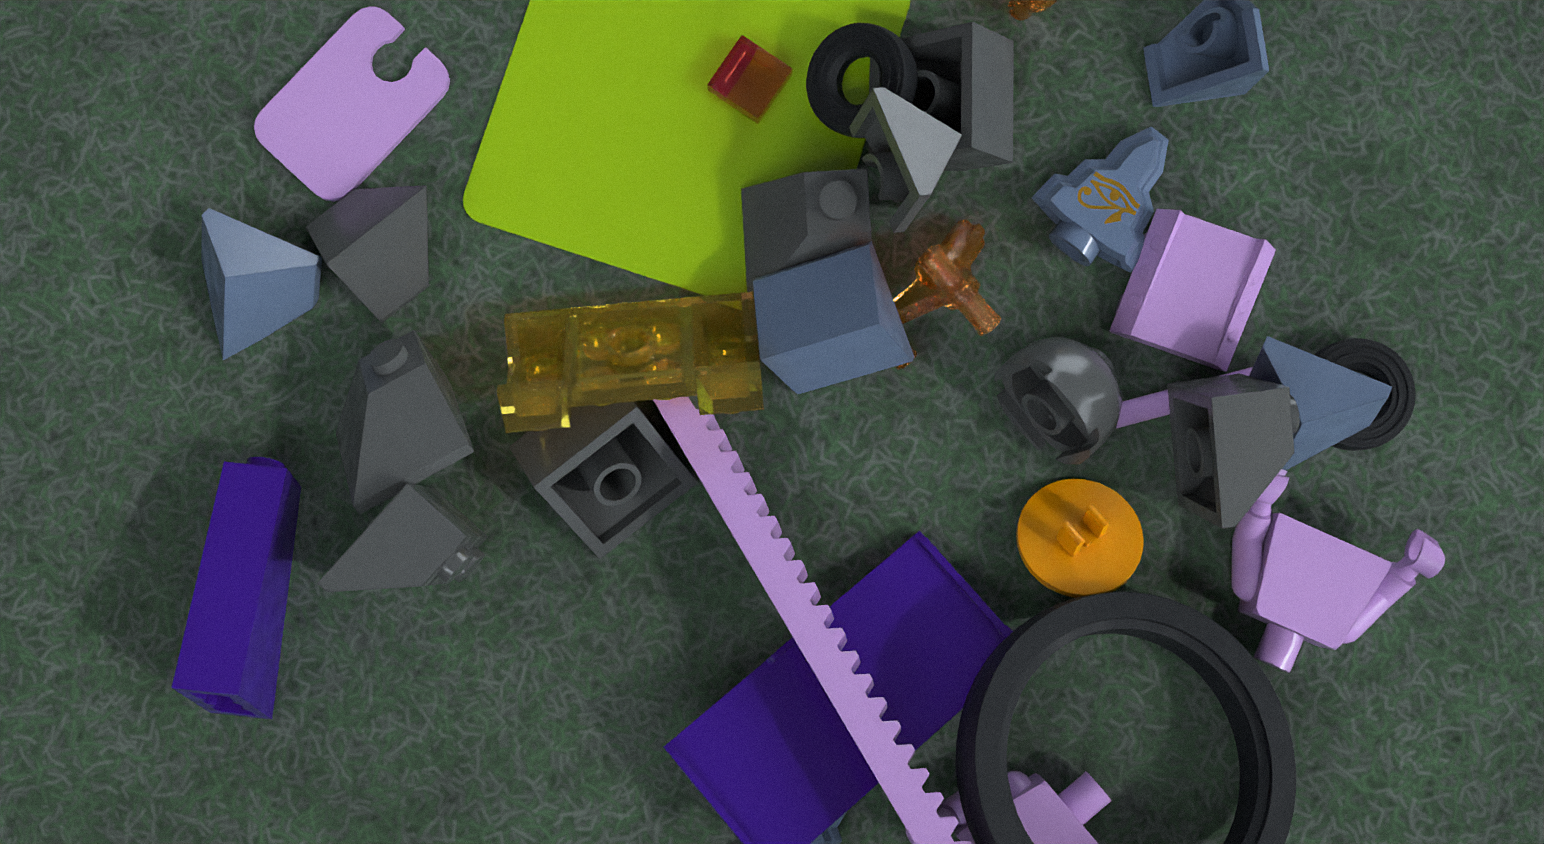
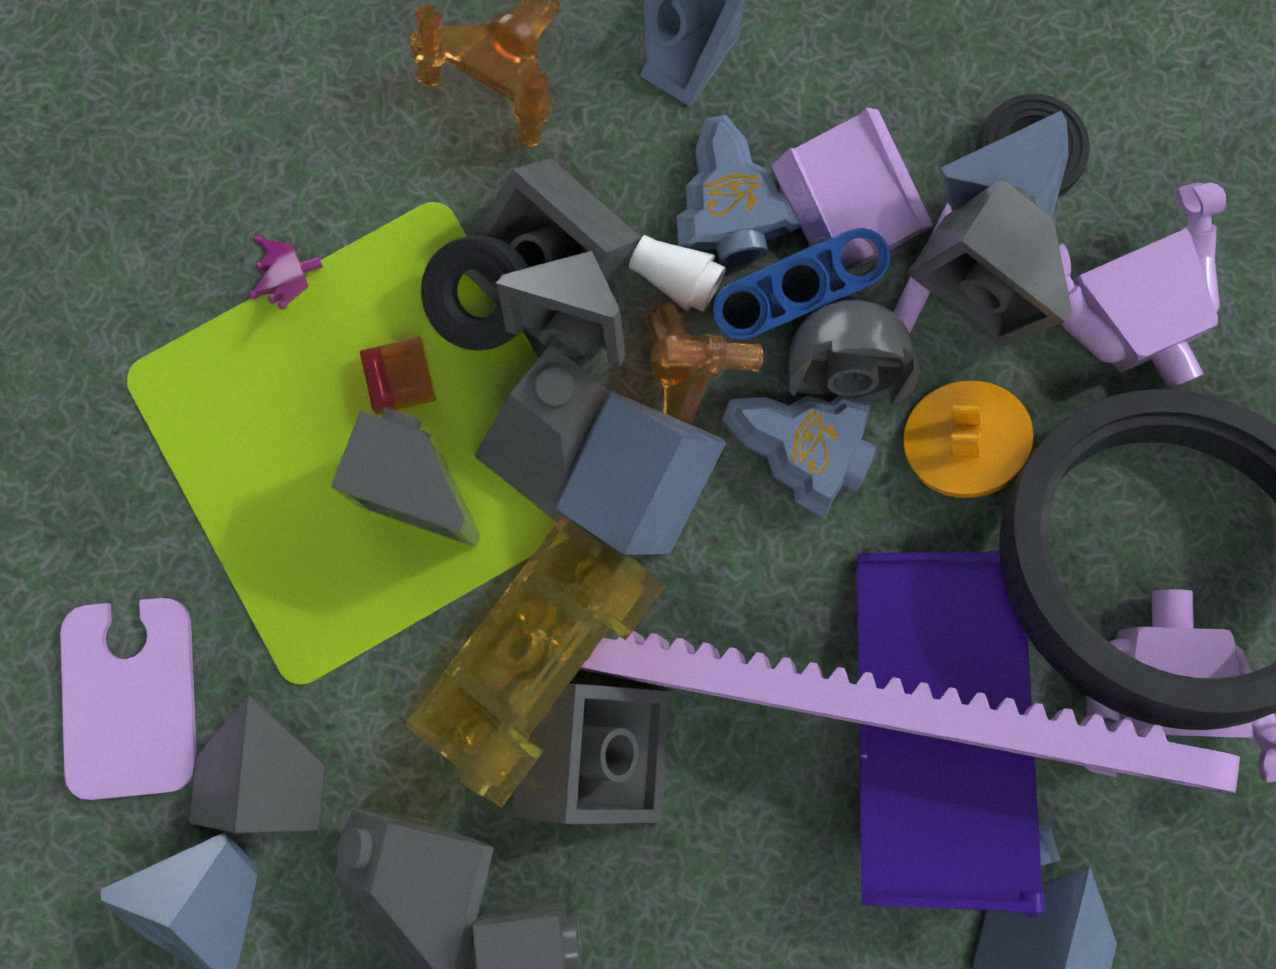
camera: 50 degrees left, 5 degrees down
(678, 150) = (403, 476): none -> dark grey slope
(968, 423) = (807, 445): none -> sand blue rock
(1013, 215) = (679, 272): none -> white cone
(1052, 302) = (831, 284): none -> blue beam

